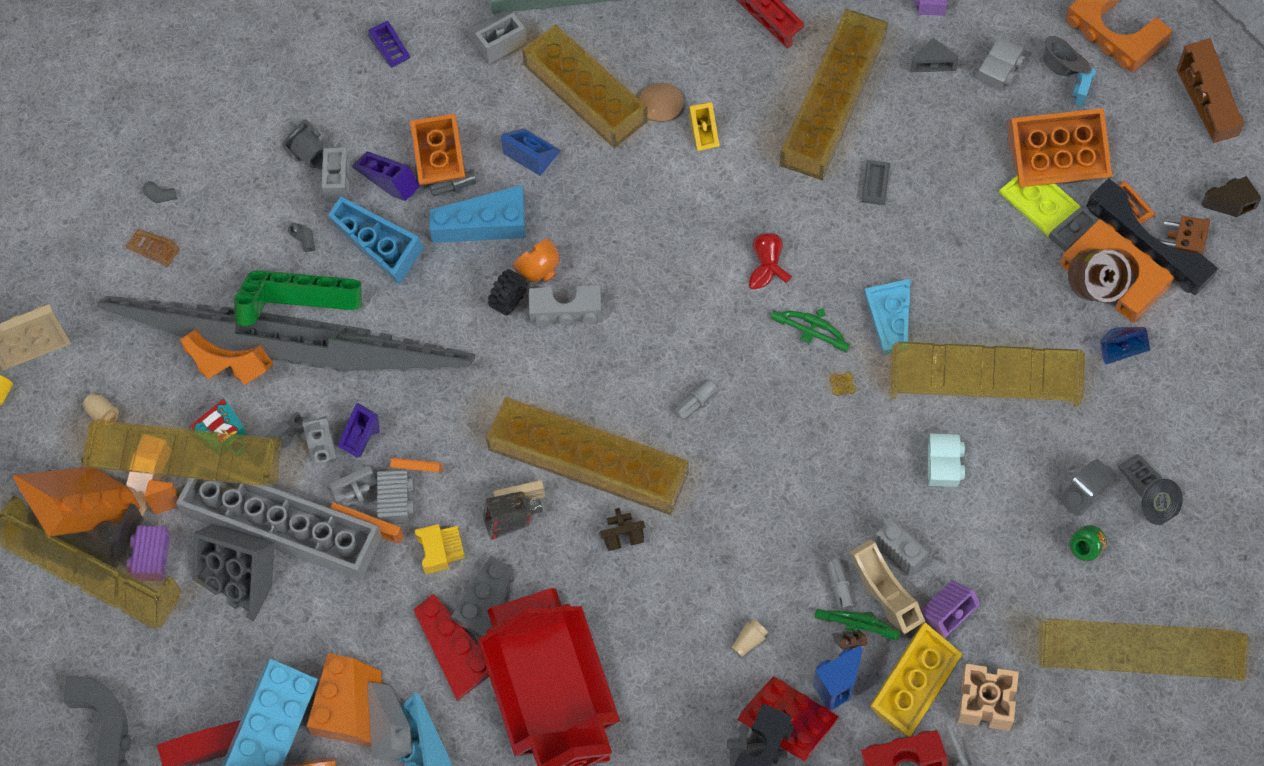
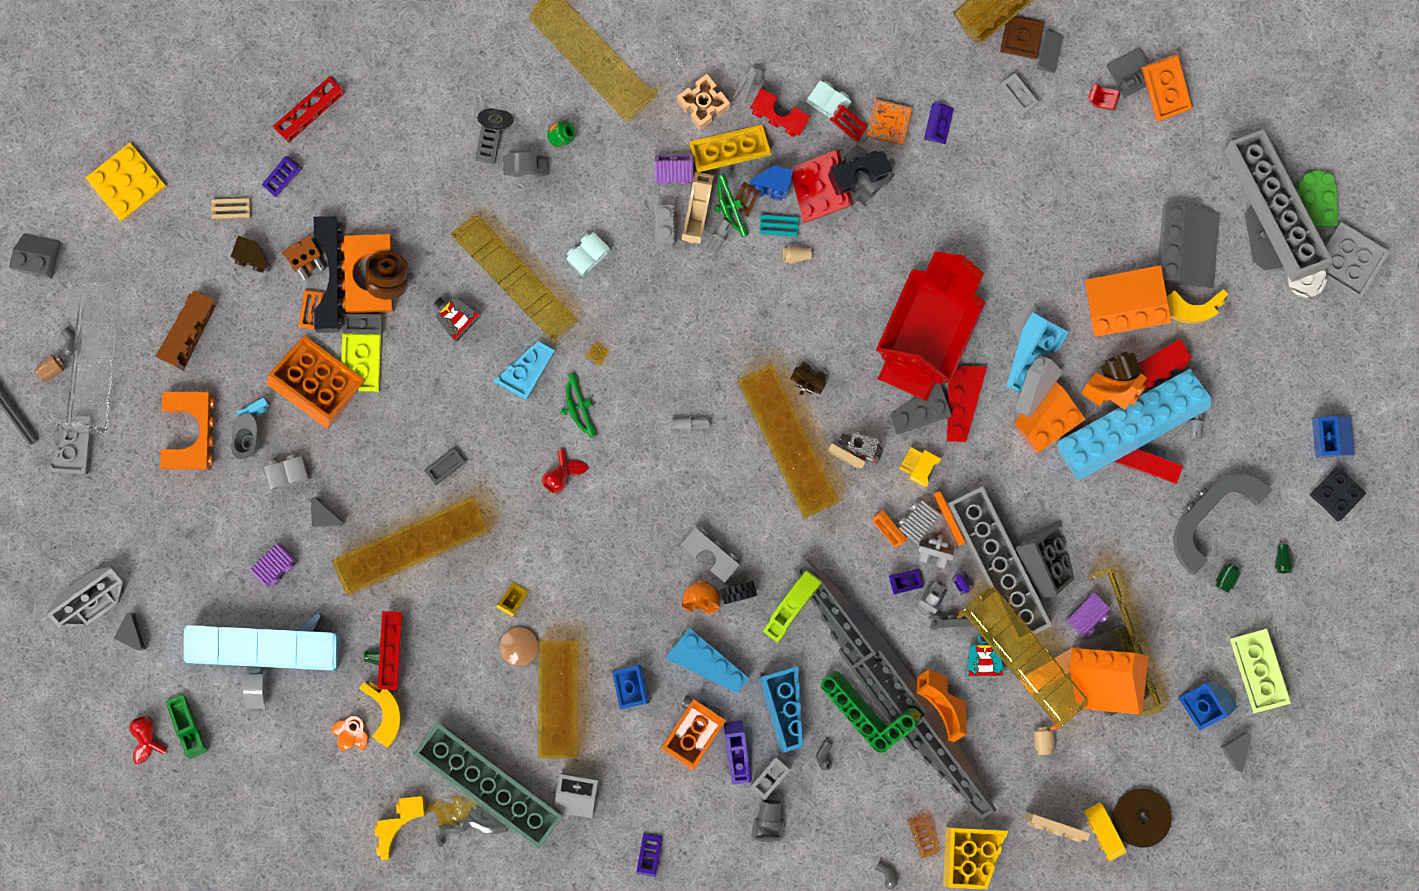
camera: 145 degrees left, 20 degrees up
(29, 708) = (1227, 577): none -> dark green brick
(90, 261) = (971, 856): none -> yellow wedge
(161, 496) = (1054, 642): orange slope -> none
(299, 475) = (963, 583): none -> dark purple slope
(446, 320) = (792, 605): none -> lime slope
(809, 638) = (776, 225): none -> teal tile
(1001, 301) = (455, 317): none -> torso
(1124, 343) = (412, 230): clear blue slope -> none

